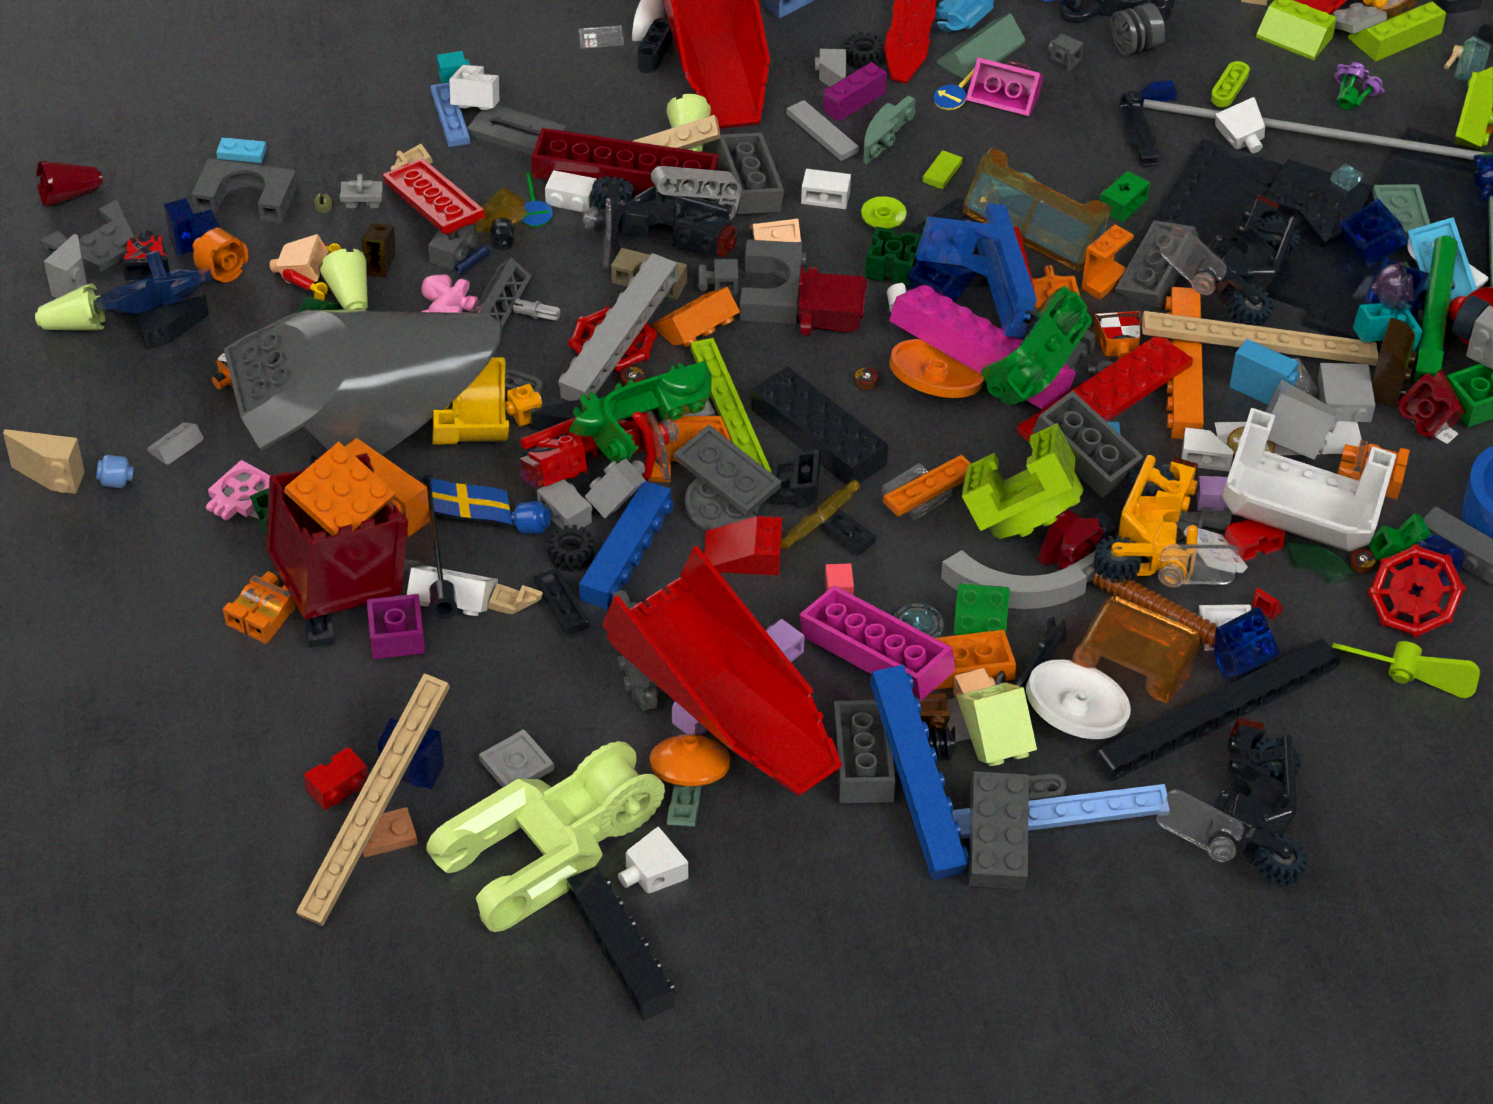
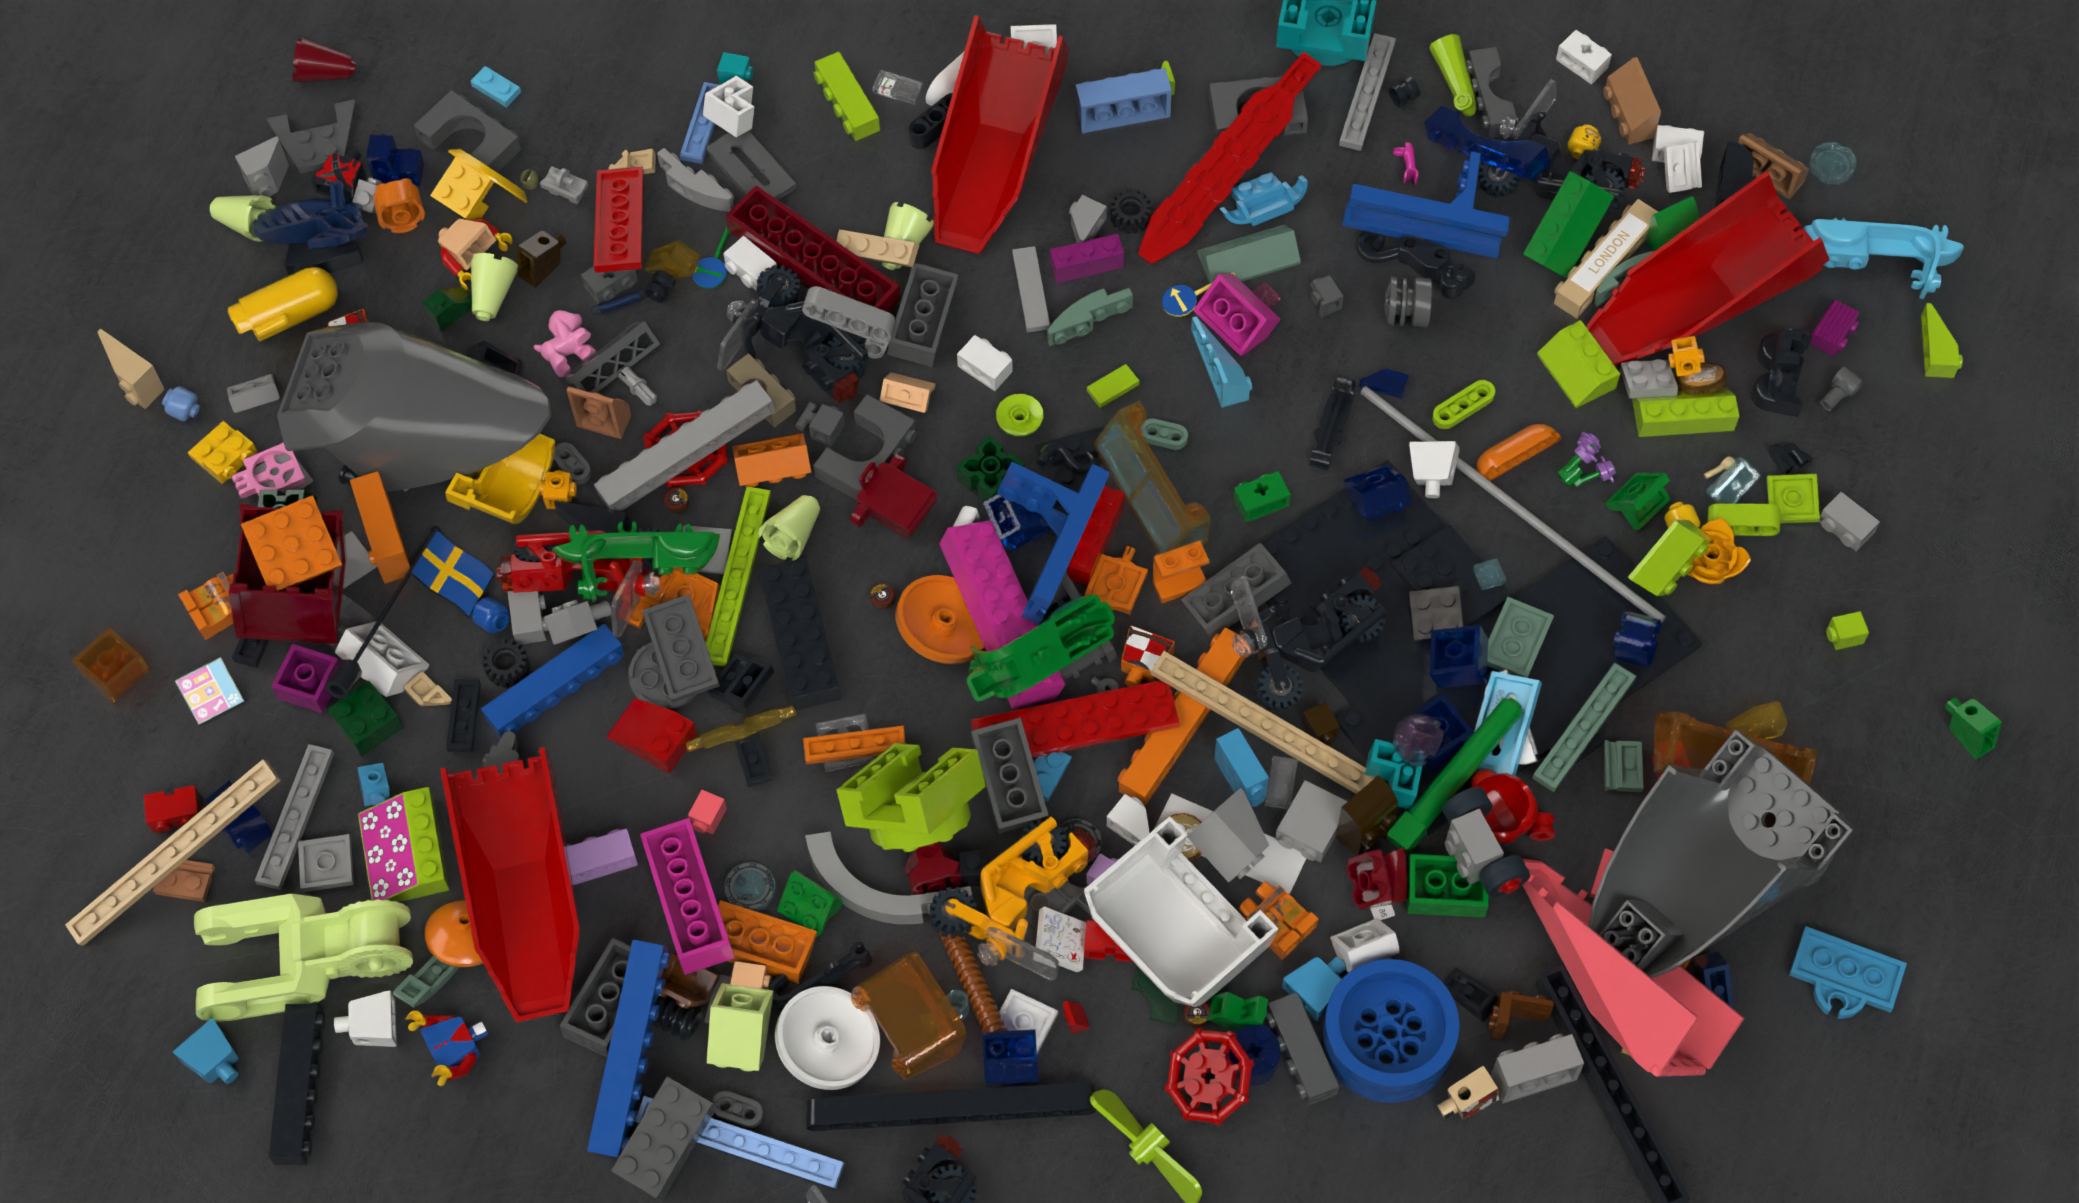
camera: 30 degrees right, 15 degrees up
(164, 359) = (285, 303): none -> yellow piece
(180, 495) = (222, 452): none -> yellow plate
(181, 257) = (365, 192): none -> light grey bracket
(193, 689) = (110, 665): none -> clear orange brick
(276, 216) = (468, 183): none -> yellow piece
(305, 673) = (209, 690): none -> piece
(461, 743) = (294, 817): none -> light grey plate
(472, 637) = (365, 718): none -> dark green brick
(483, 156) = (696, 187): none -> light grey slope
(517, 955) = (209, 1054): none -> dark azure torso
(519, 681) = (373, 784): none -> dark azure brick
(522, 330) = (599, 413): none -> nougat slope
(565, 53) = (847, 96): none -> lime brick
(580, 714) = (403, 847): none -> slope
(740, 848) = (449, 1043): none -> torso
(753, 358) = (790, 528): none -> yellowish green cone
(1019, 123) = (1223, 370): none -> medium azure wedge
(1218, 155) = (1378, 492): none -> clear blue slope
(1294, 97) = (1516, 450): none -> orange brick
(1298, 320) = (1321, 723): none -> dark brown brick
(1414, 91) = (1640, 498): none -> green bracket
(1444, 494) = (1314, 984): none -> dark azure torso
(1454, 95) = (1681, 512): none -> yellow head
(1457, 455) = (1365, 944): none -> white brick

